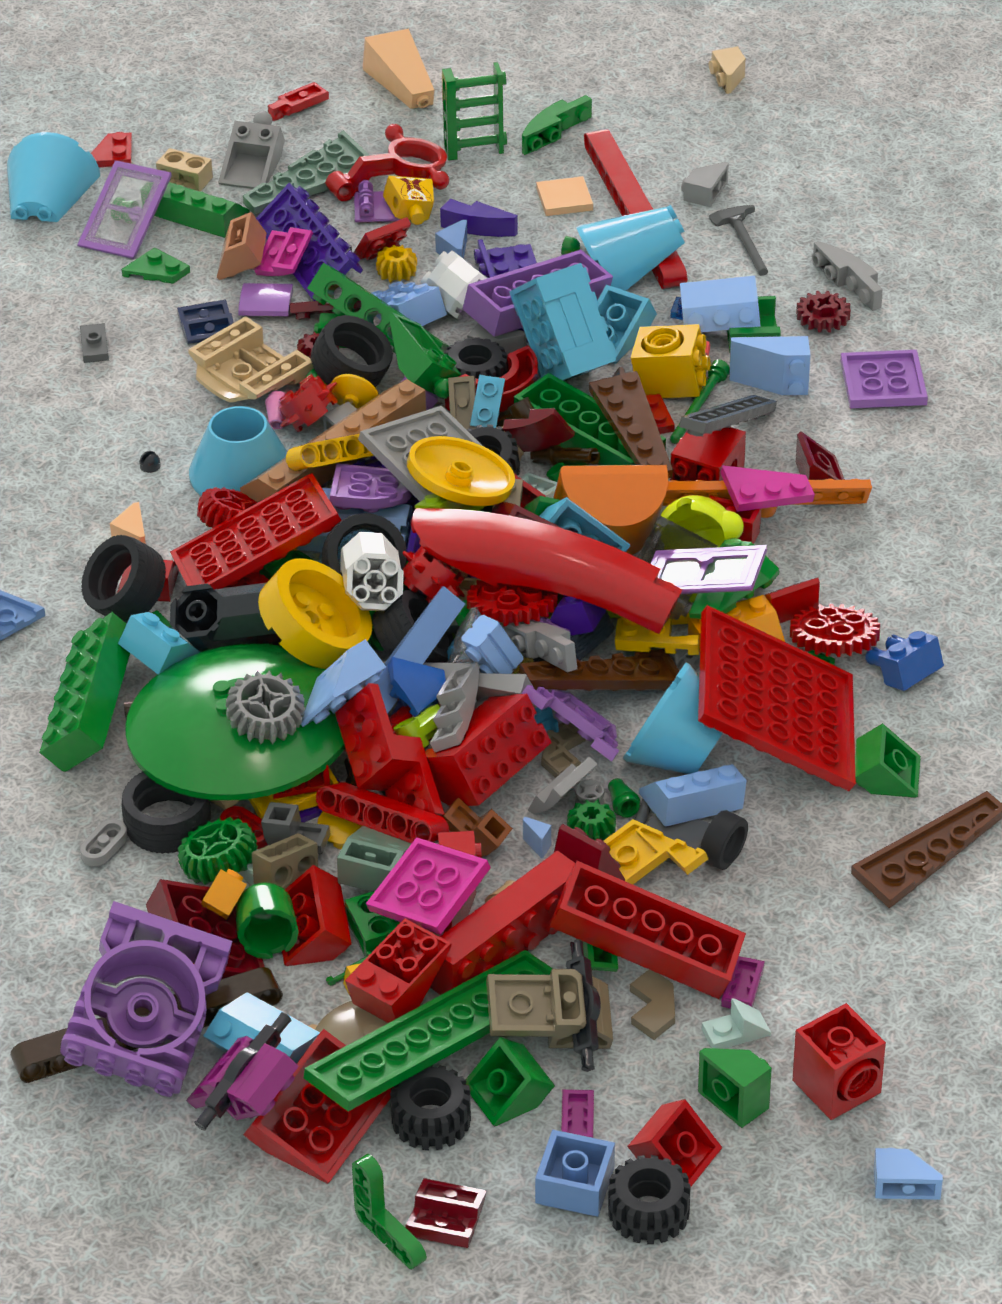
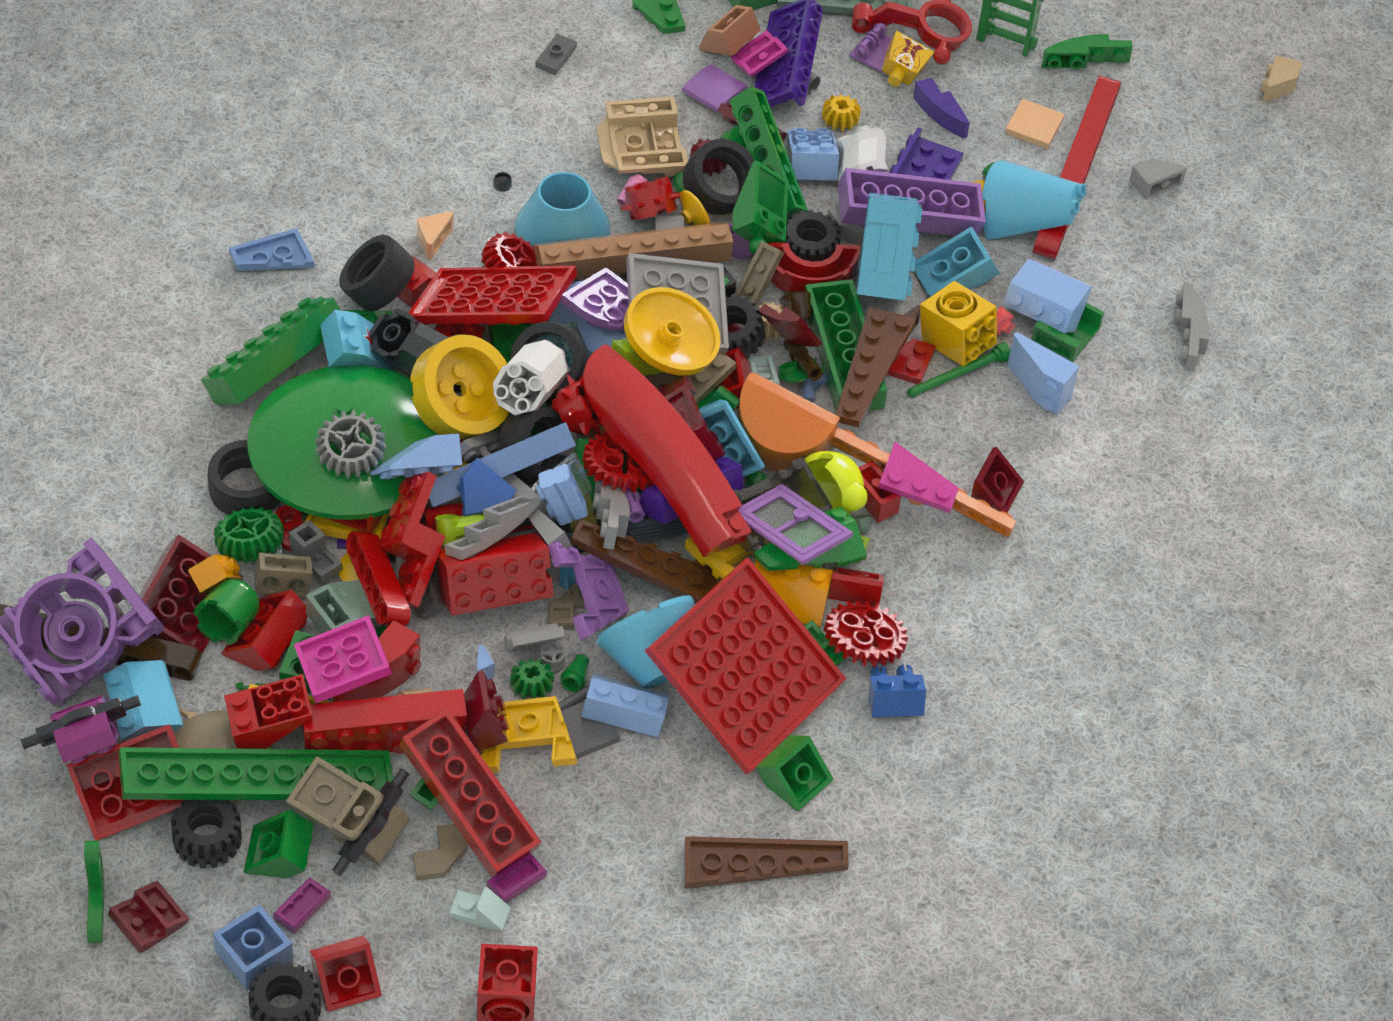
camera: 30 degrees right, 10 degrees up
(99, 846) = (184, 478): light grey plate -> none
(204, 320) = (653, 81): dark blue slope -> none
(335, 453) = (611, 258): yellow beam -> none
(385, 236) = (845, 84): red tile -> none
(452, 239) = (904, 117): medium blue slope -> none
(487, 401) = (777, 278): medium azure hinge -> none
(488, 829) = (440, 633): dark orange brick -> none
(704, 455) = (908, 421): red brick -> none
(724, 839) = (607, 755): black tyre -> none
(727, 414) = (942, 399): dark grey plate -> none
(735, 216) = (1152, 219): dark grey piece -> none
(735, 1082) = (427, 955): green slope -> none
(823, 311) = (1137, 347): dark red gear -> none
(883, 379) = (1126, 436): medium lavender plate -> none

